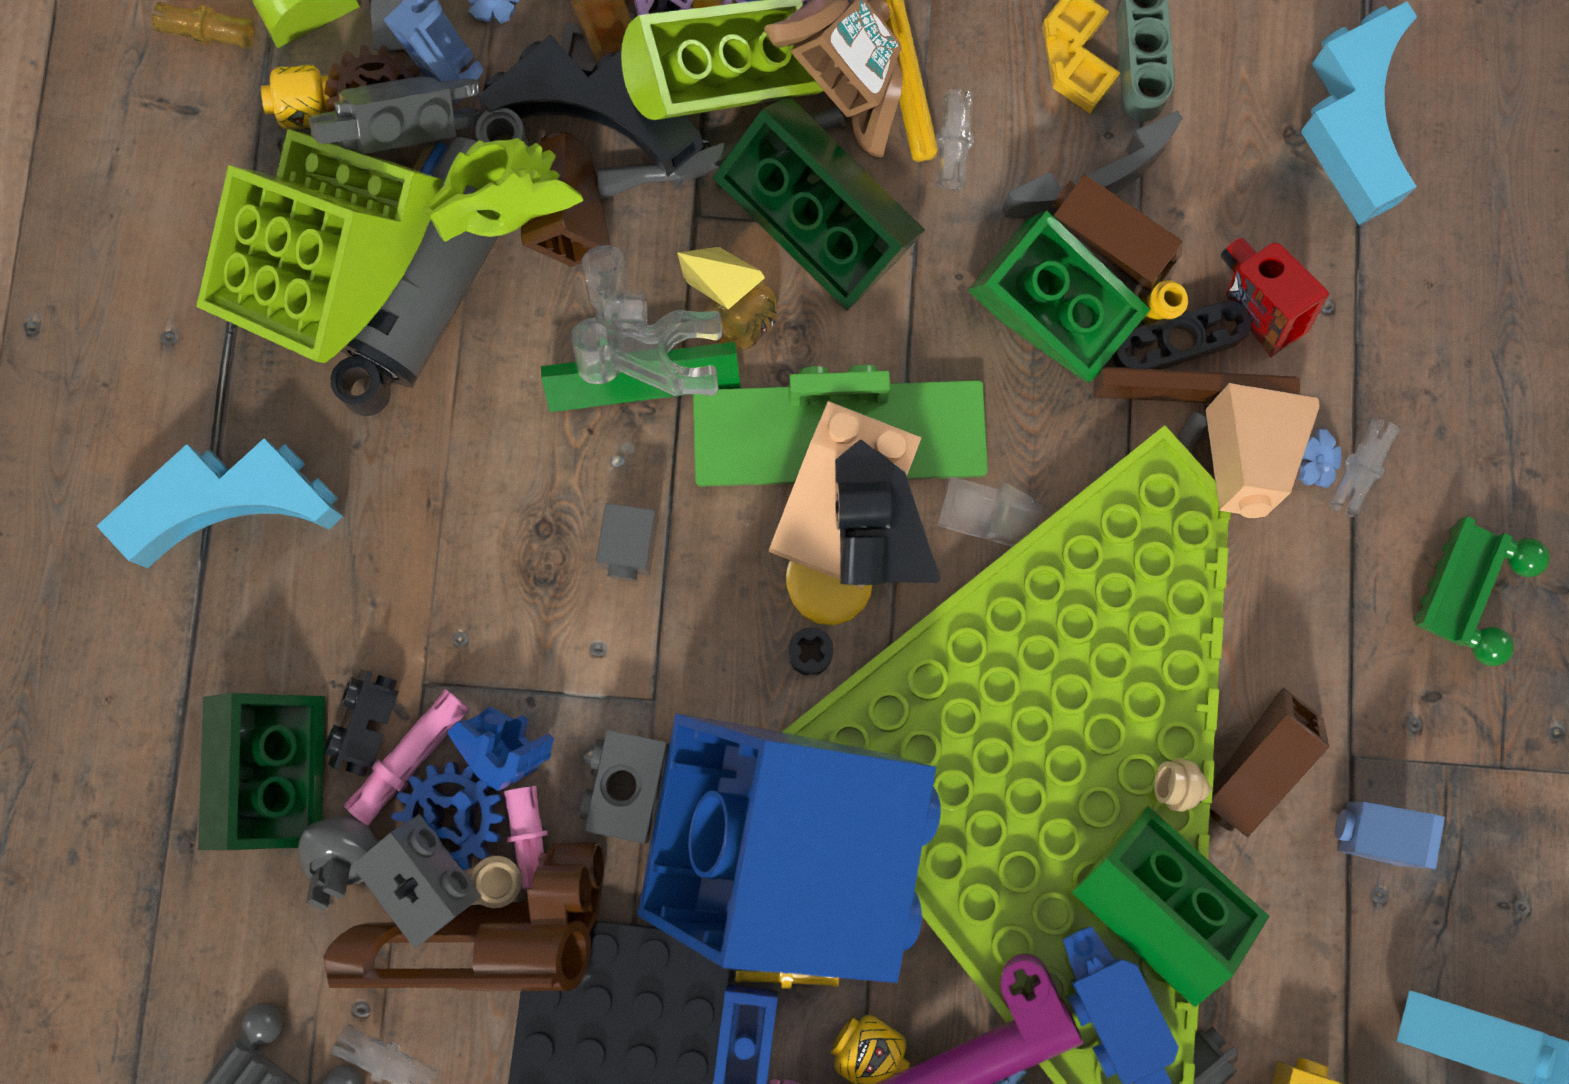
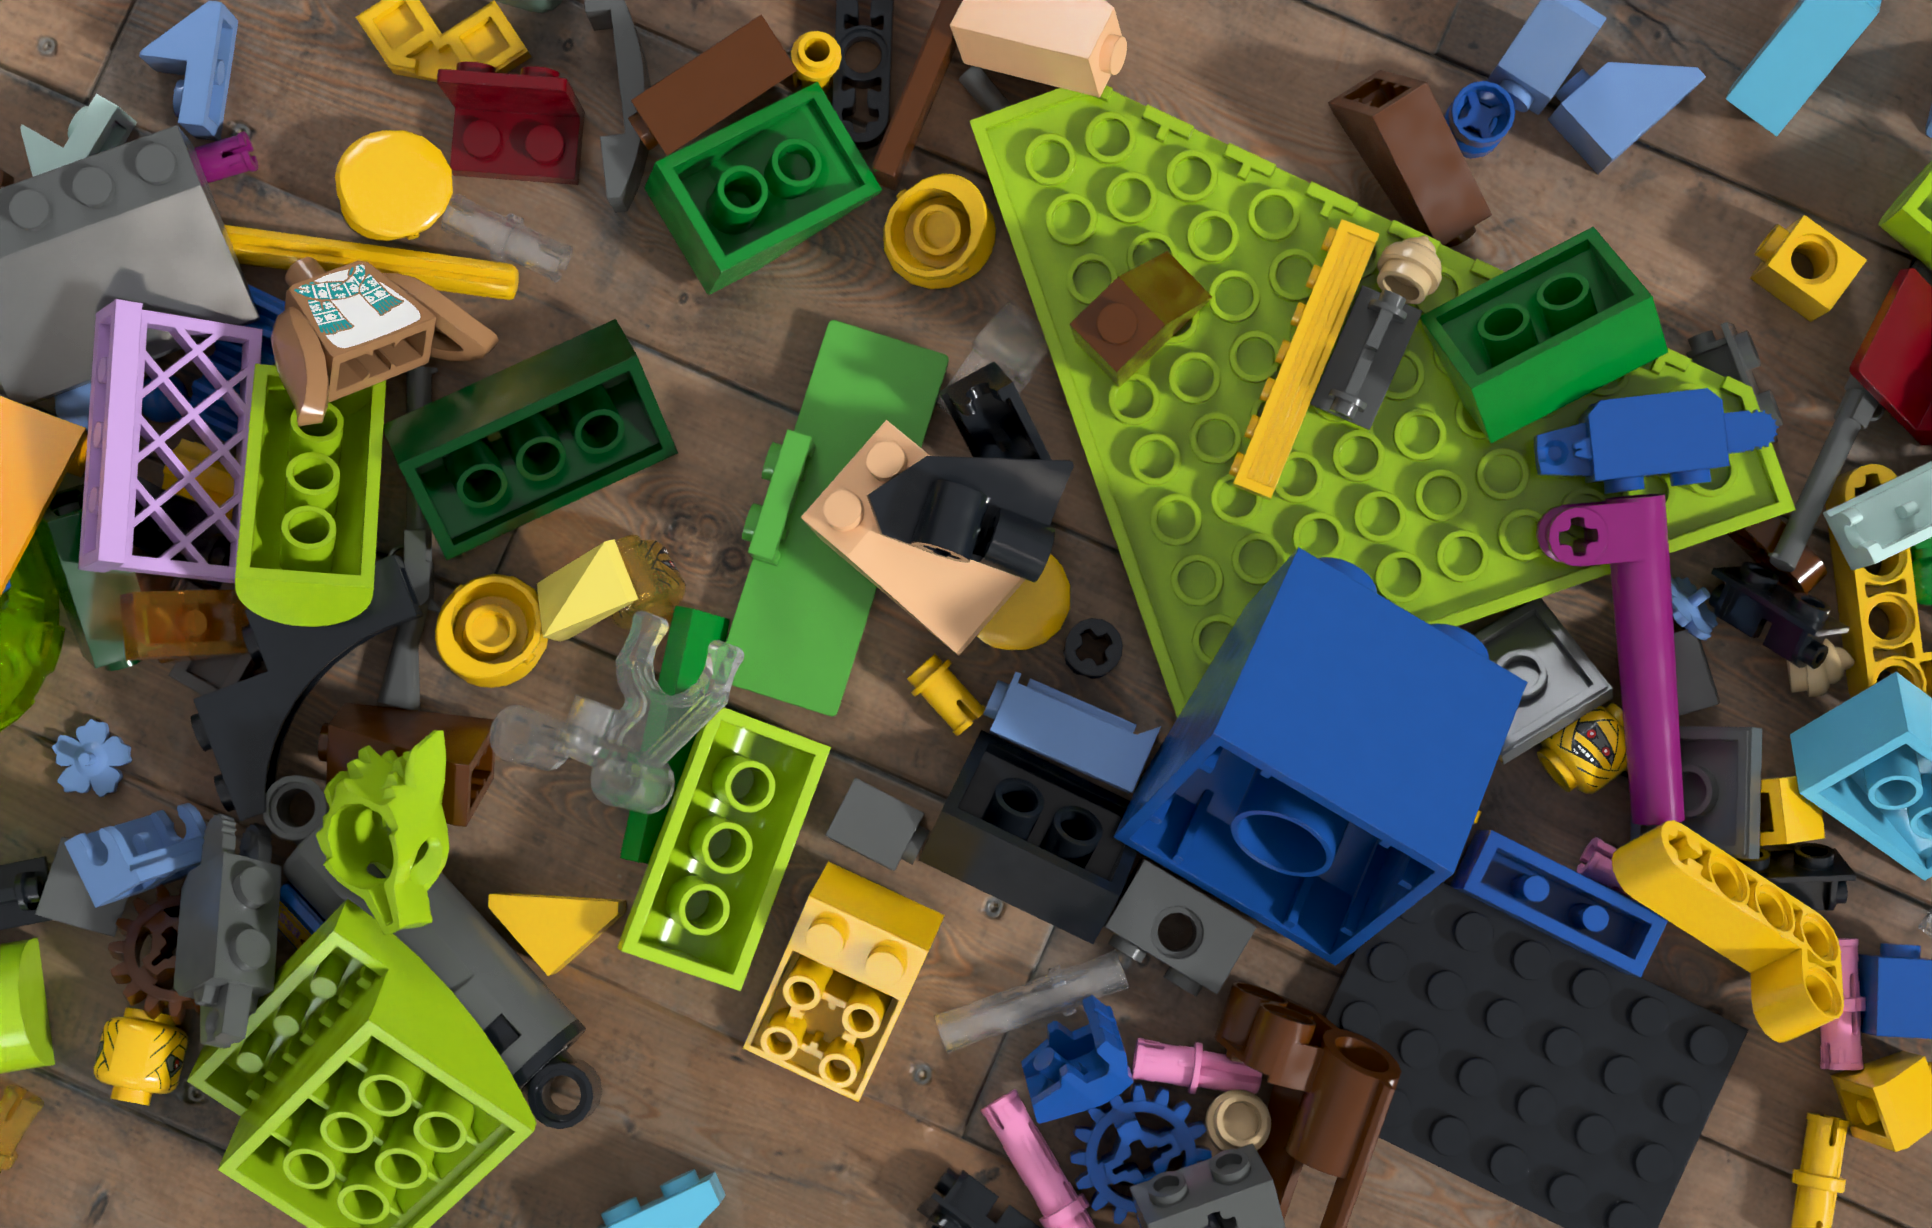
camera: 70 degrees left, 5 degrees up
(478, 341) = (554, 926): none -> yellow slope
(508, 556) = (843, 981): none -> yellow slope
(542, 705) = (1018, 1006): none -> clear pin
(573, 435) = (724, 848): none -> lime brick
(656, 655) = (1033, 837): none -> black slope
(670, 222) = (491, 631): none -> yellow piece
(742, 554) = (946, 694): none -> yellow pin
(743, 656) = (1070, 732): none -> medium blue window
(916, 1005) = (1557, 673): none -> dark grey tile
(953, 517) = (993, 416): none -> black hinge
(962, 48) = (392, 185): none -> yellow piece
(1037, 113) = (513, 124): none -> dark red bracket
(1067, 590) = (1138, 315): none -> reddish brown slope
(1075, 436) = (939, 232): none -> yellow piece
(1083, 729) = (1303, 358): none -> yellow piece
(1102, 776) = (1366, 356): none -> dark grey hinge
(1326, 803) = (1487, 111): none -> blue wheel
(1370, 909) = (1617, 106): none -> medium blue slope

